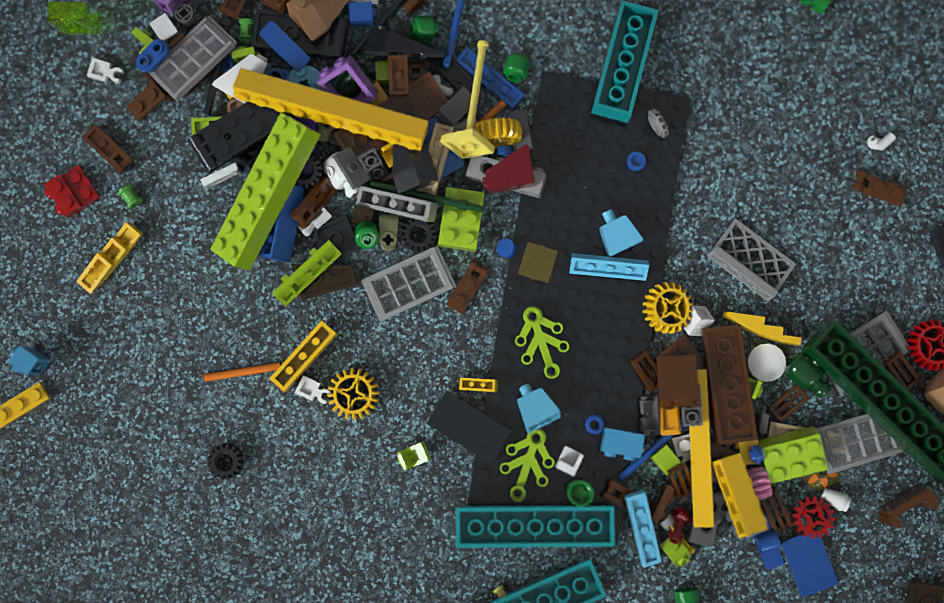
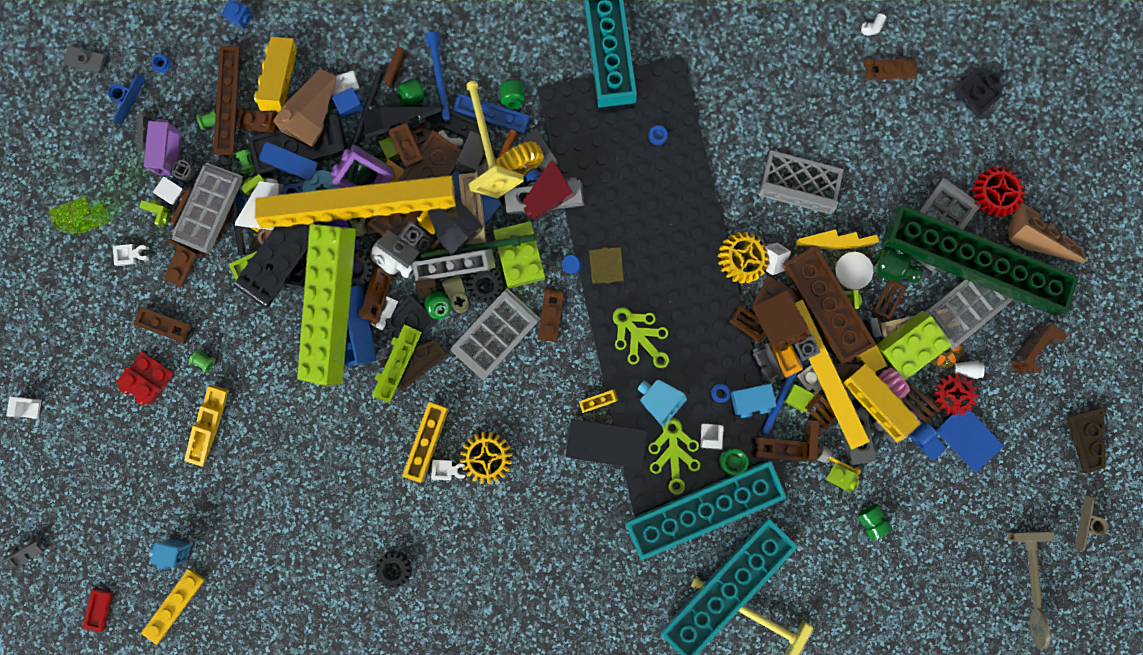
camera: 20 degrees left, 0 degrees up
(153, 57) = (170, 222): blue plate -> none
(221, 175) = (279, 306): white tile -> none
(242, 371) = (374, 480): orange bar -> none
(413, 455) = (566, 491): lime bracket -> none
(609, 266) = (673, 242): medium azure plate -> none
(618, 233) = (669, 208): medium azure torso -> none
(643, 528) = (805, 470): medium azure plate -> none
(658, 123) = (664, 91): light grey gear -> none
(683, 518) = (837, 445): dark red bar -> none
(756, 454) = (880, 358): blue plate -> none
(892, 359) = (967, 220): reddish brown tile -> none

